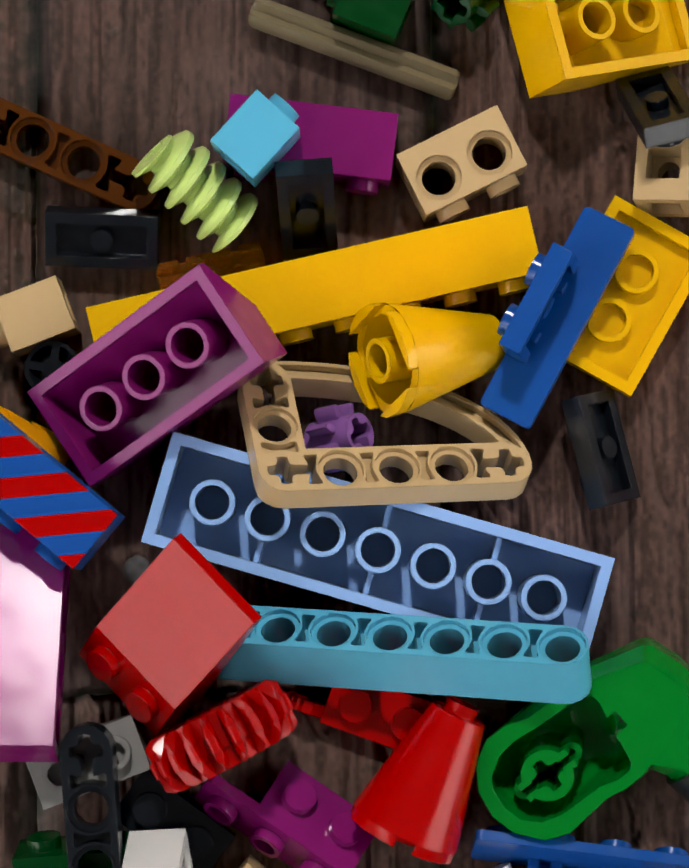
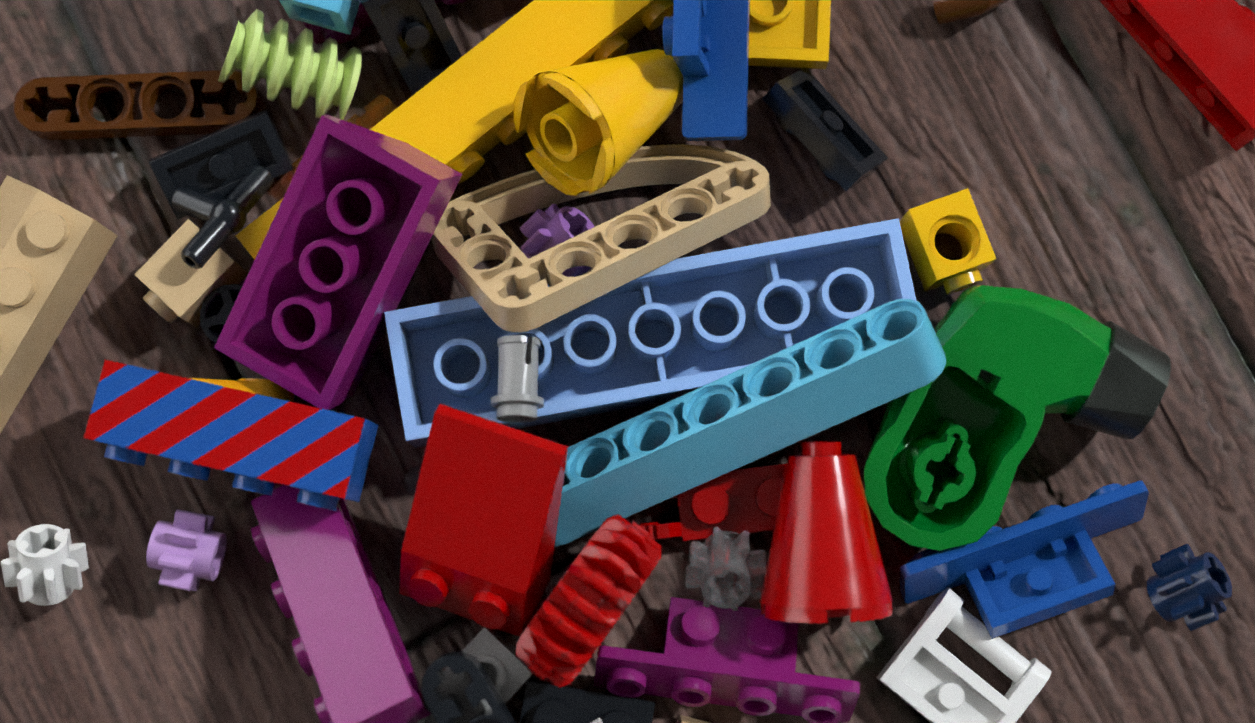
camera: 25 degrees left, 5 degrees down
(83, 287) = (221, 216): none -> black piece
(250, 540) = (517, 379): none -> light grey pin
(340, 762) = (725, 569): none -> clear gear
(669, 573) = (954, 216): none -> yellow brick

